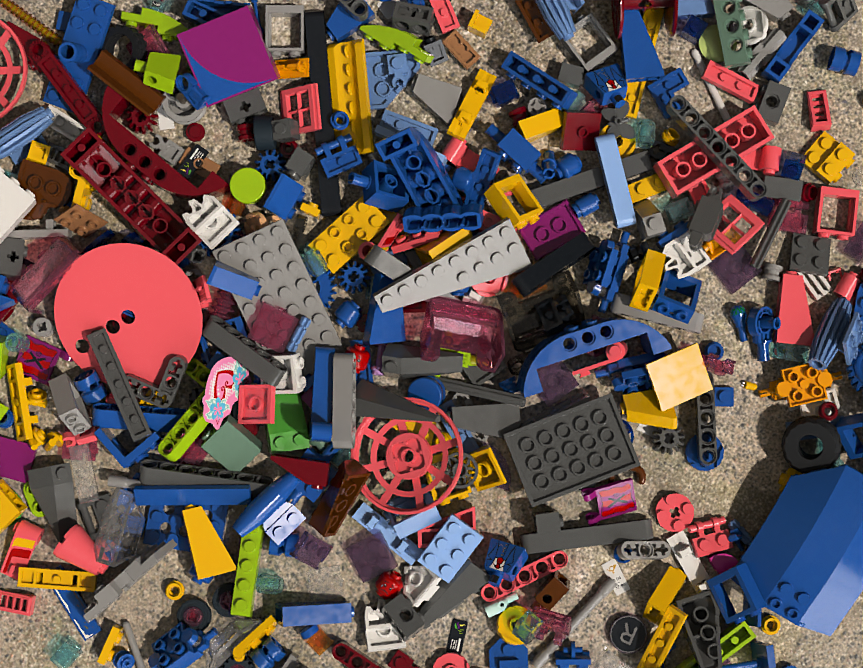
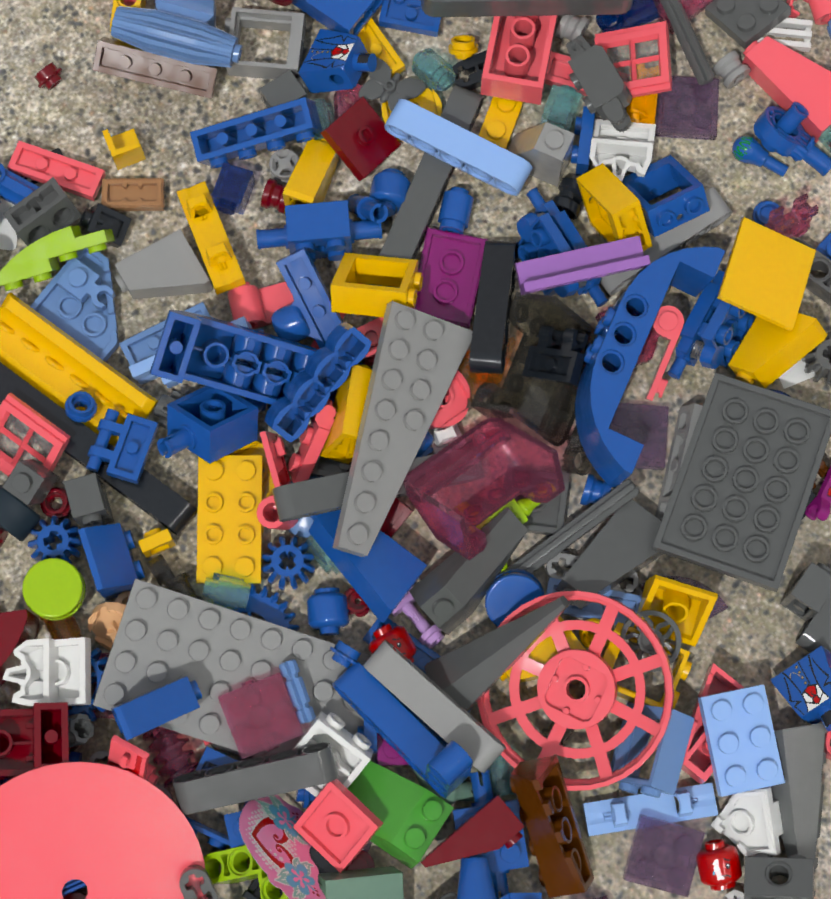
camera: 45 degrees left, 10 degrees down
(333, 340) = (345, 654): none -> blue plate
(604, 289) = (581, 265): none -> medium lavender fence

